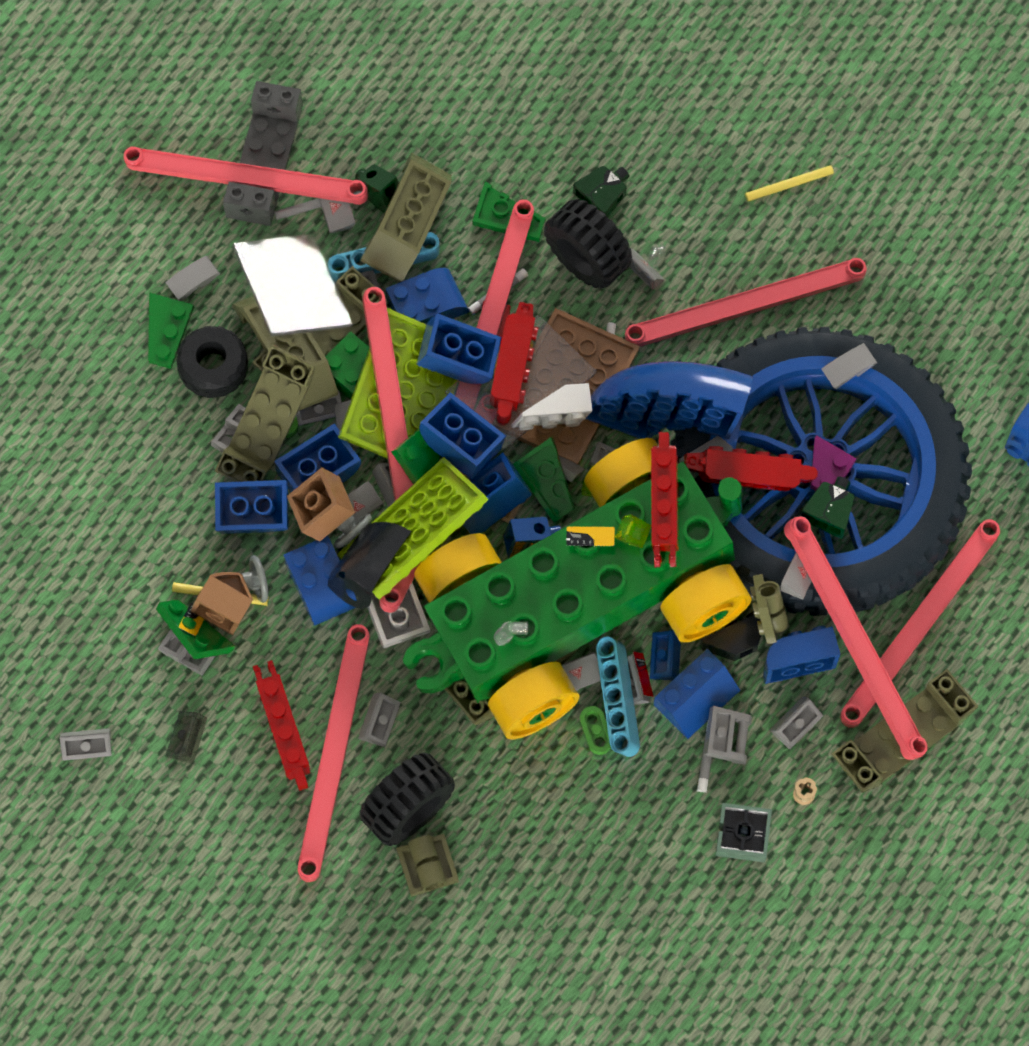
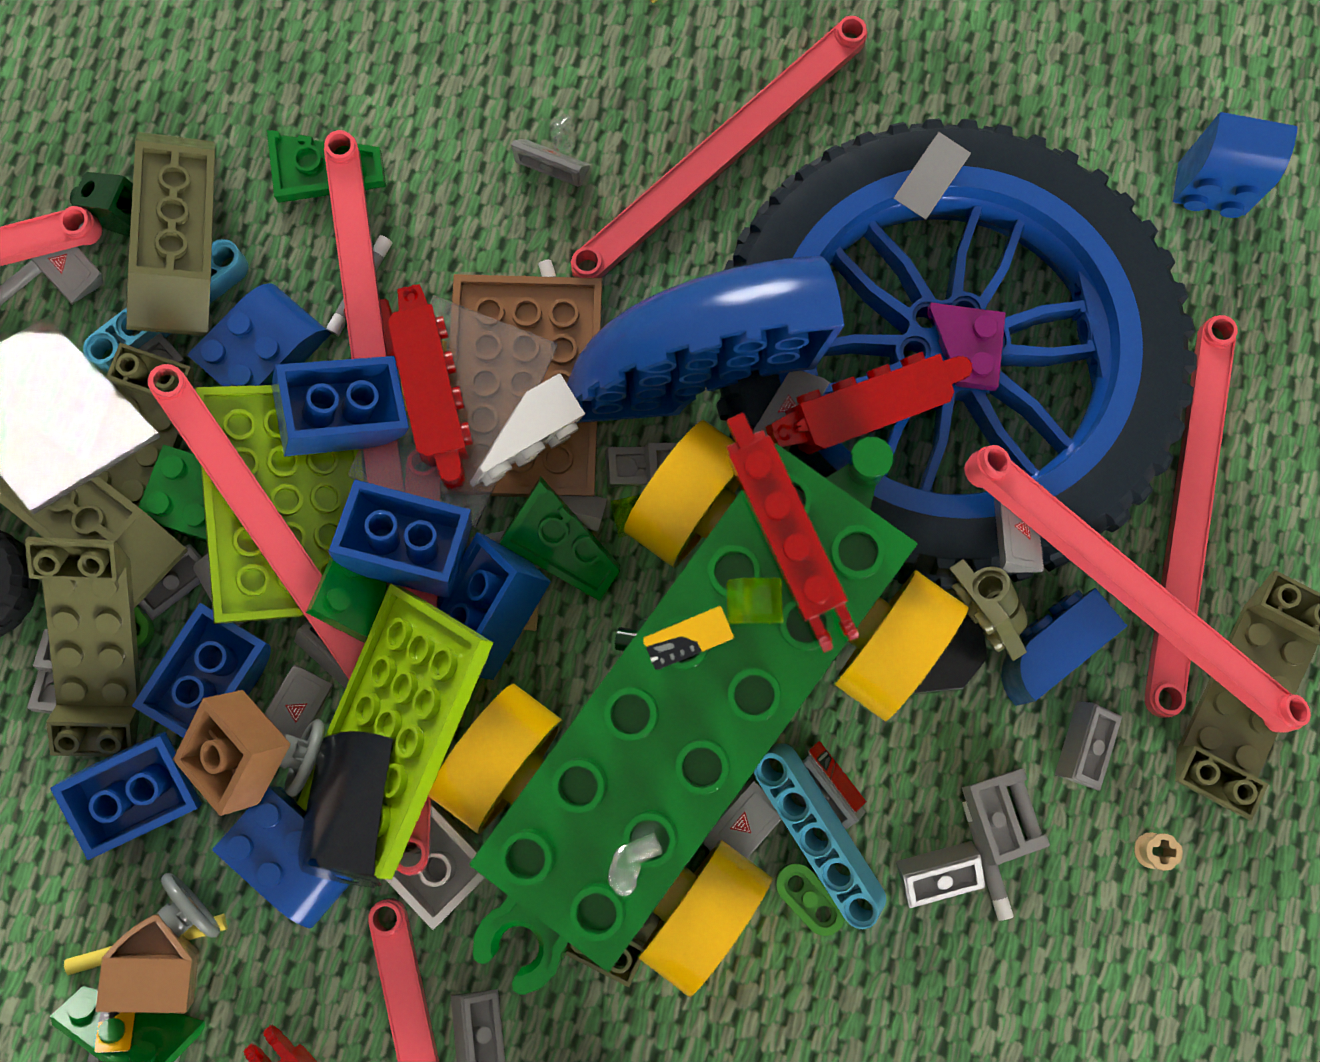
camera: 25 degrees left, 10 degrees up
(526, 532) = (562, 648): blue torso -> none
(588, 243) = (458, 155): black tyre -> none
(602, 188) = (441, 72): dark green torso -> none
(665, 656) = (854, 733): blue slope -> none
(676, 753) = (941, 874): none -> light grey slope
(694, 692) = (929, 771): blue slope -> none
(743, 832) = (1108, 944): piece -> none
(830, 507) = (1013, 407): dark green torso -> none

